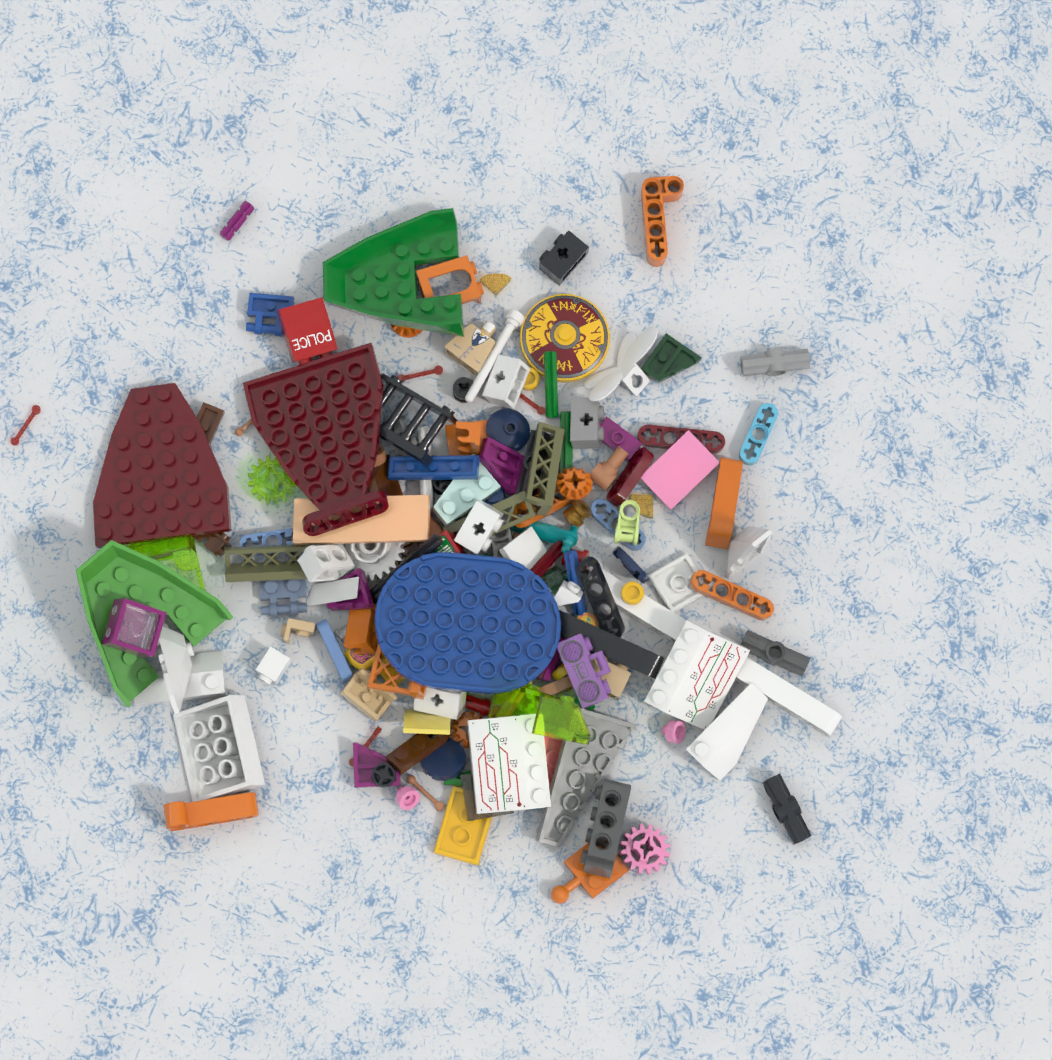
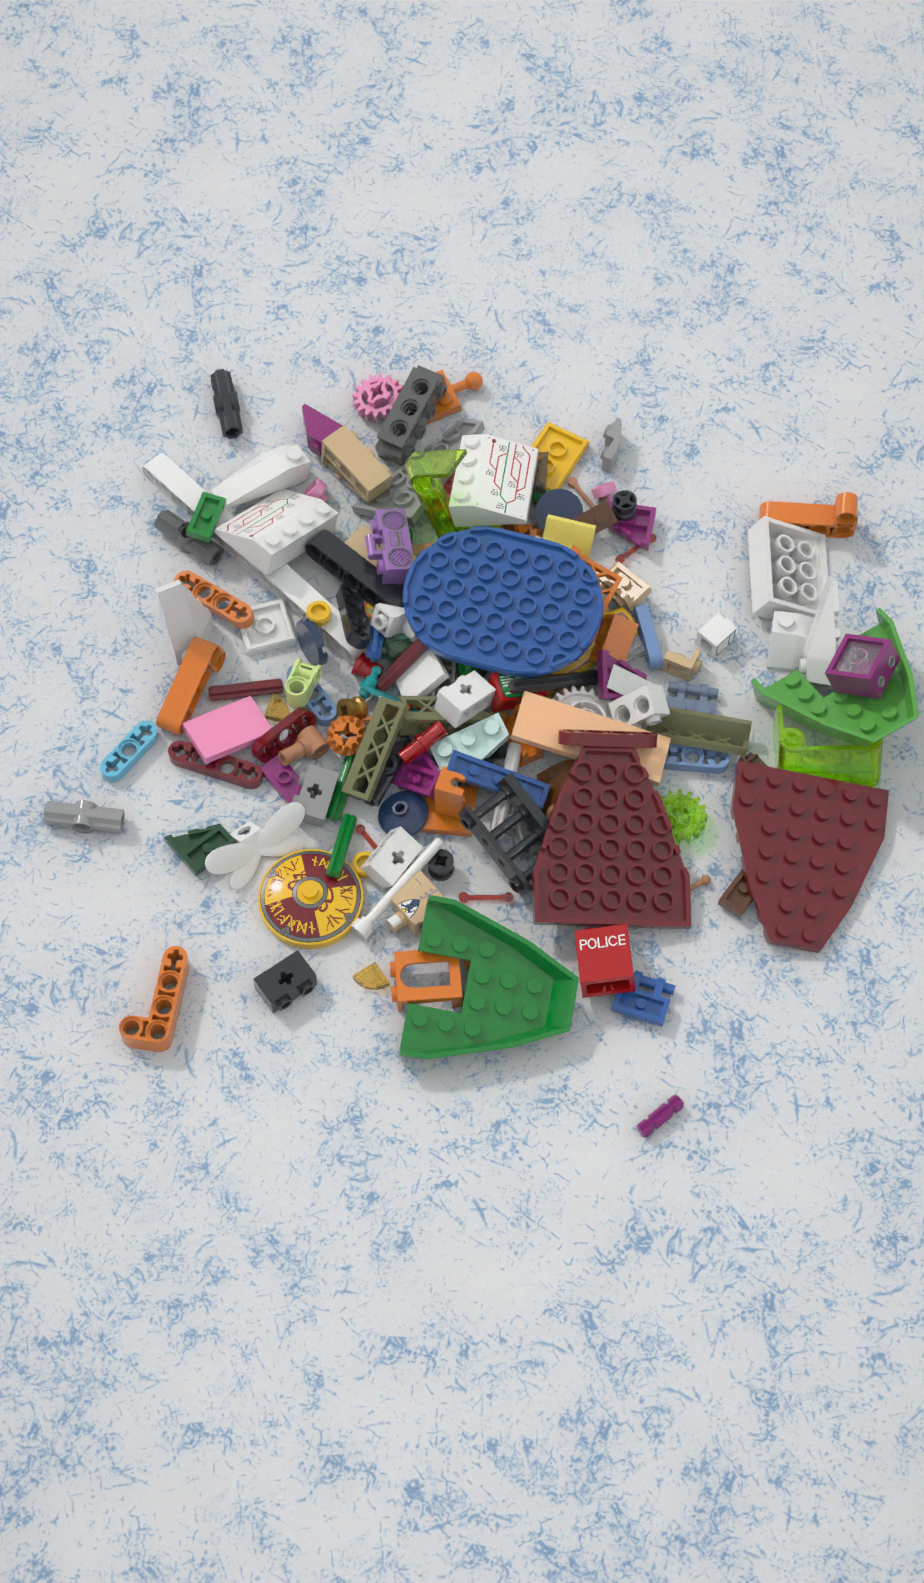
camera: 160 degrees left, 15 degrees down
(411, 858) = (612, 445): none -> light grey slope
(505, 481) = (422, 743): none -> red pin
(642, 758) = (355, 463): none -> tan wedge
(676, 516) = (245, 689): none -> dark red axle
(689, 797) = (317, 428): none -> magenta slope
(762, 663) = (206, 517): none -> green plate

